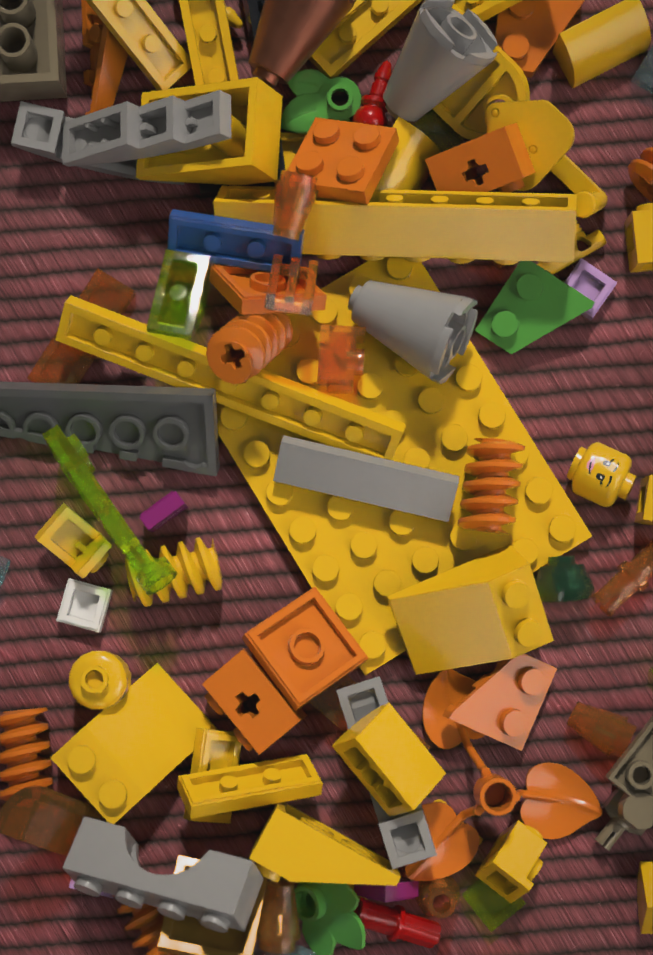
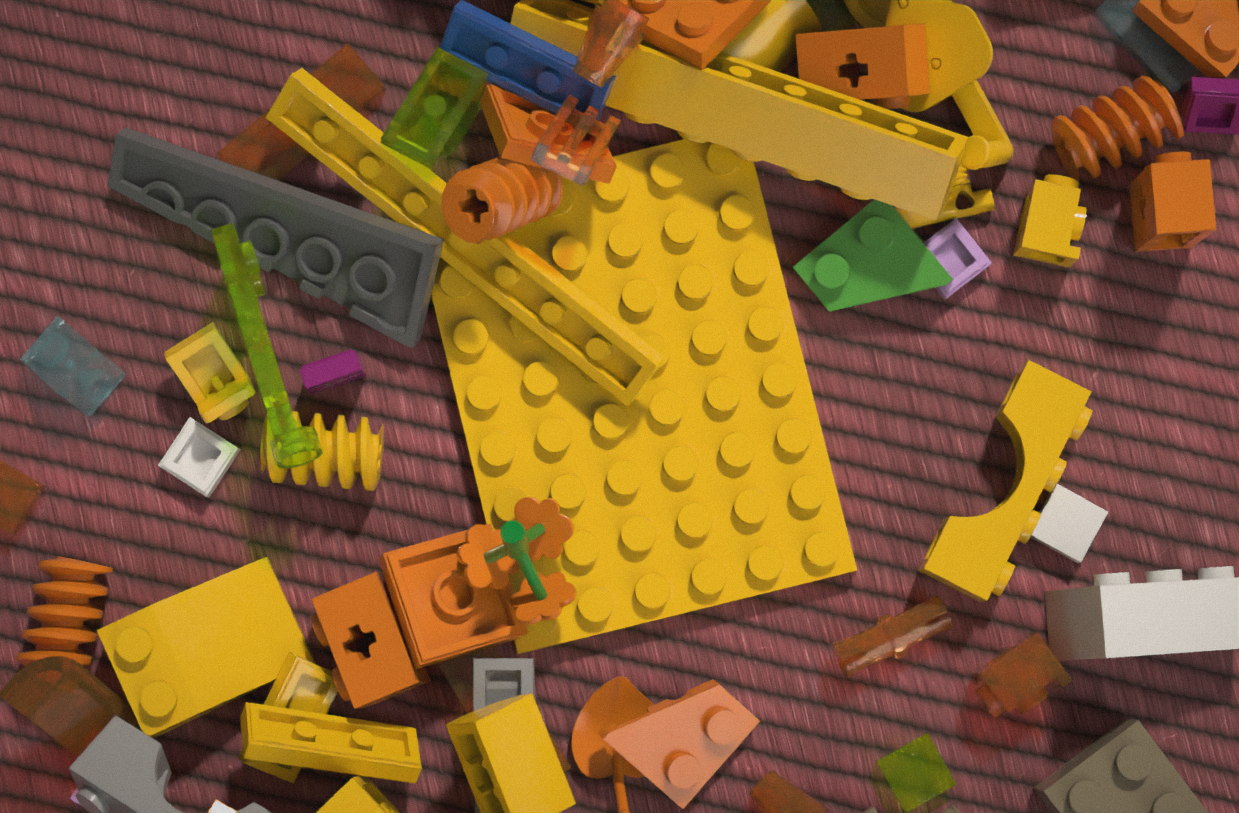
camera: 20 degrees right, 0 degrees up
(99, 679) = (187, 554): yellow head -> none
(327, 608) = (500, 553): none -> orange plant
(340, 358) = (610, 249): clear orange brick -> none
(366, 478) = (594, 409): light grey tile -> none
(416, 324) = (718, 237): light grey cone -> none
(472, 614) = (672, 618): yellow slope -> none
(490, 485) = (746, 466): orange piece -> none
(564, 580) = (801, 614): clear green cone -> none
(601, 474) = (892, 497): yellow head -> none

